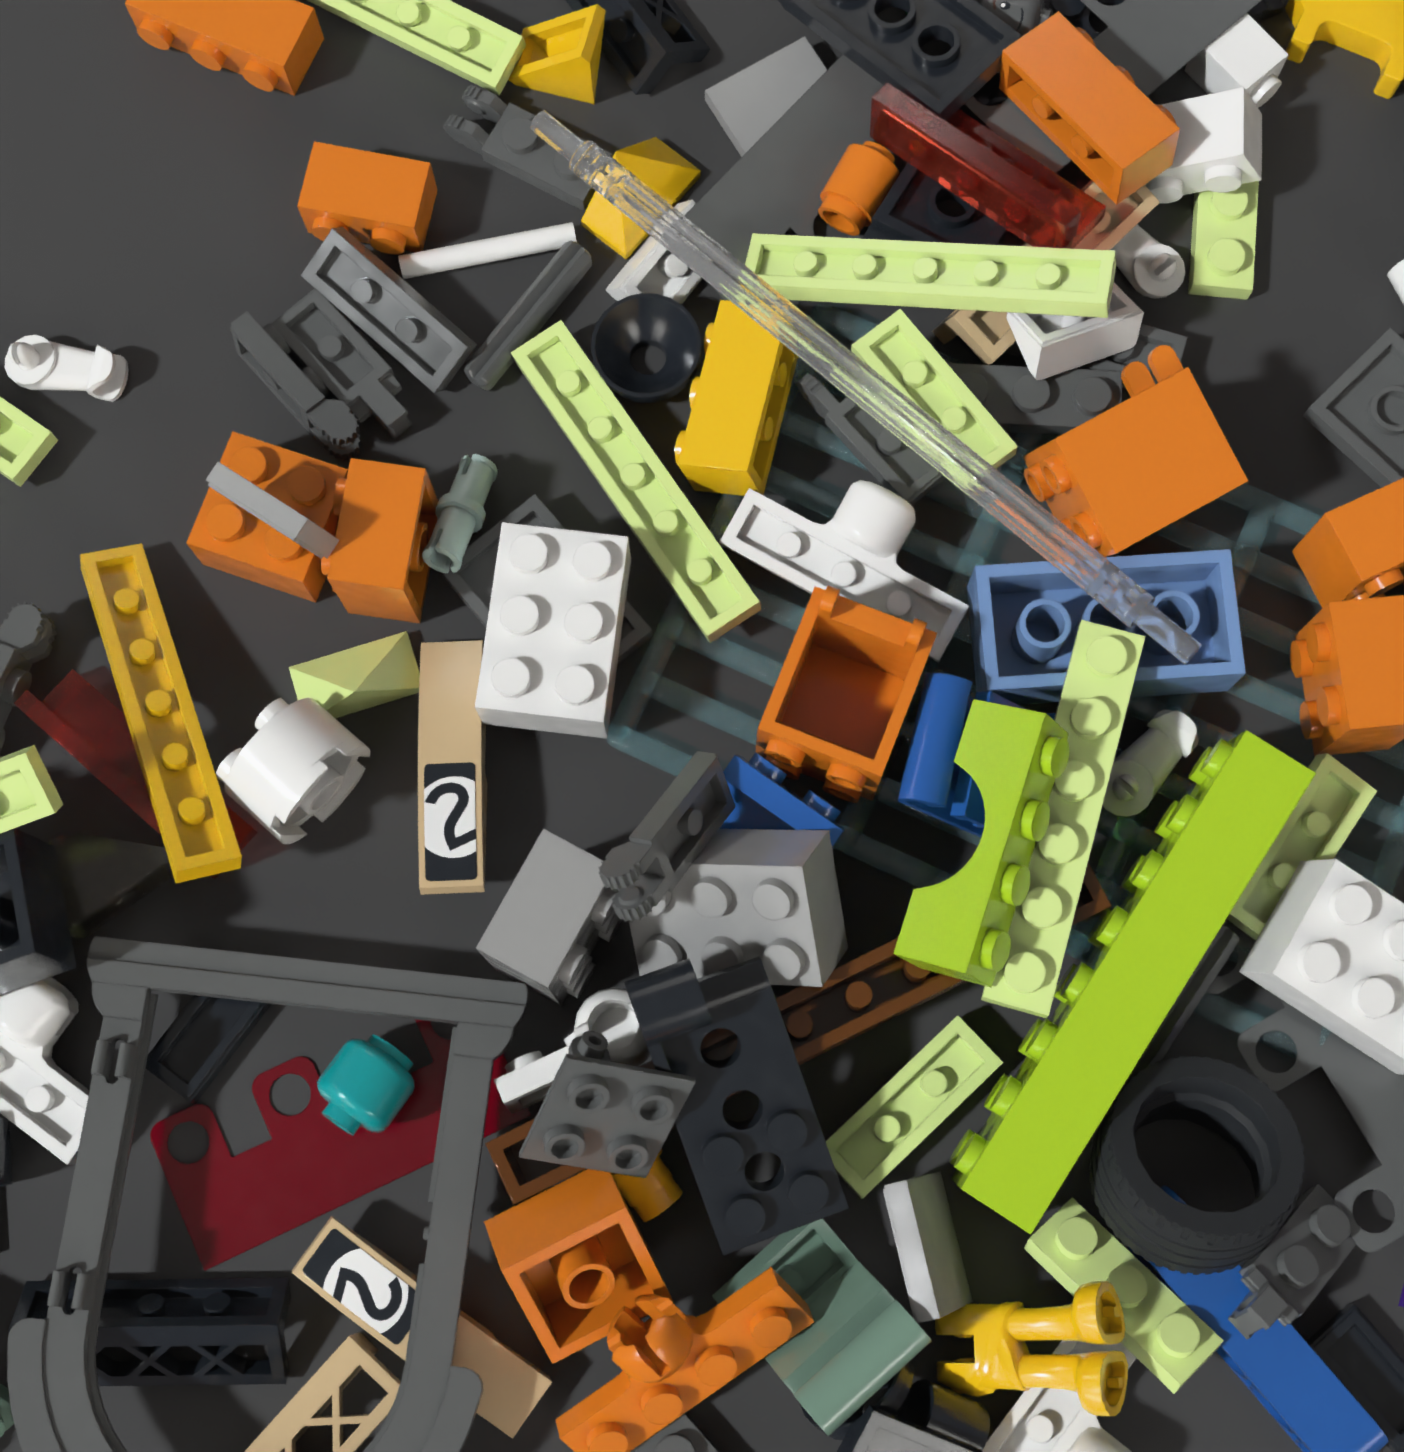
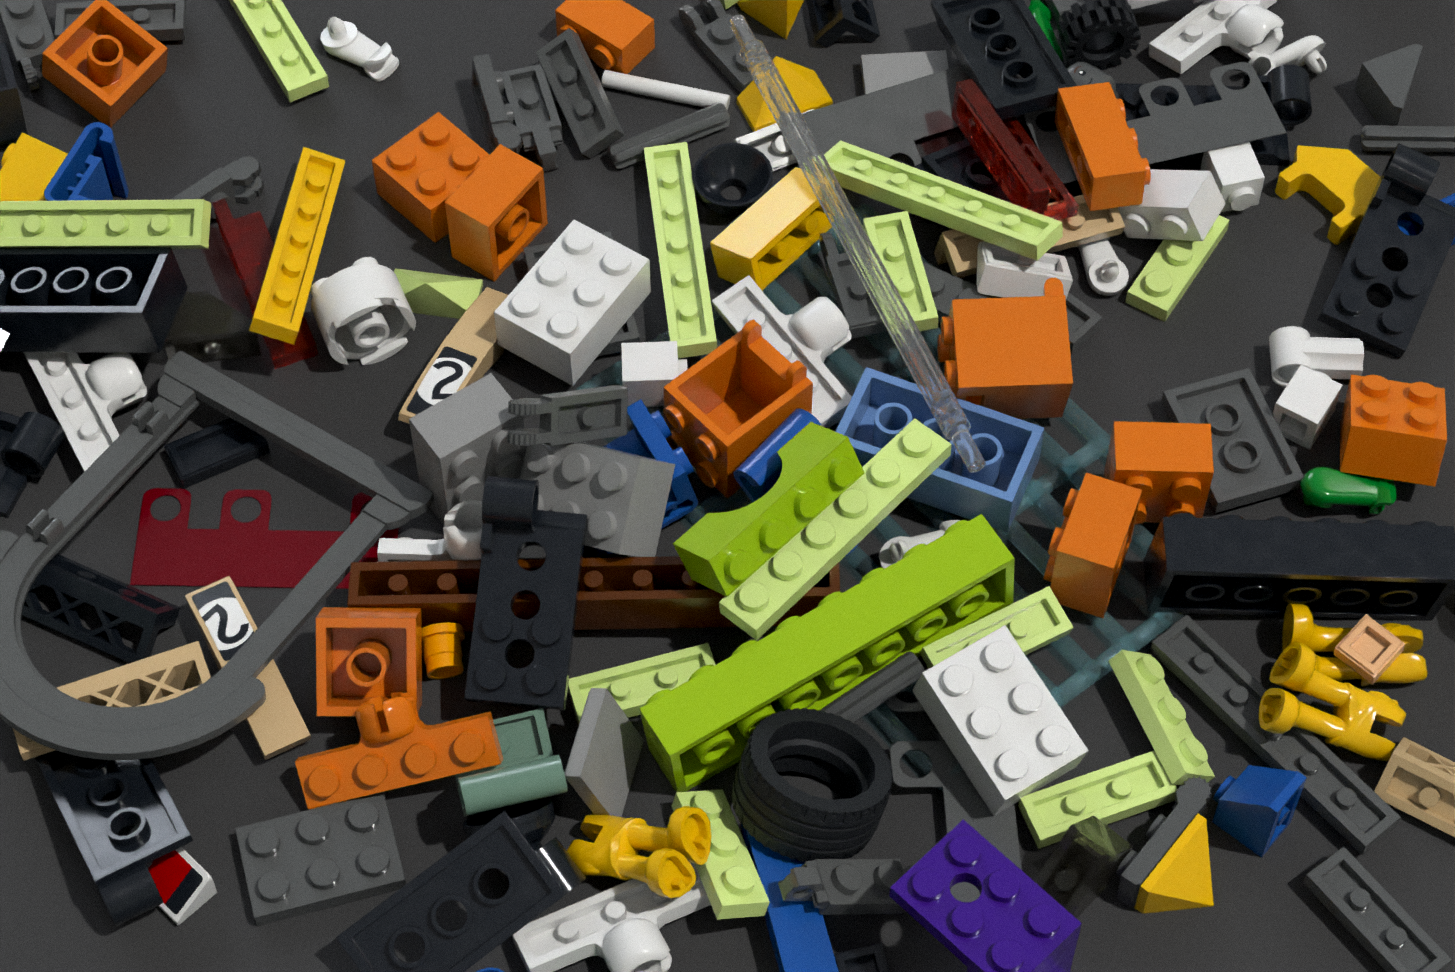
camera: 25 degrees right, 20 degrees down
(271, 511) = (433, 149): light grey tile -> none
(366, 1085) = (297, 512): teal head -> none
(460, 513) = (554, 221): light aqua pin -> none
(605, 1112) = (435, 559): dark grey hinge -> none
(701, 681) = (648, 369): none -> white brick
(858, 187) = (925, 138): orange brick -> none

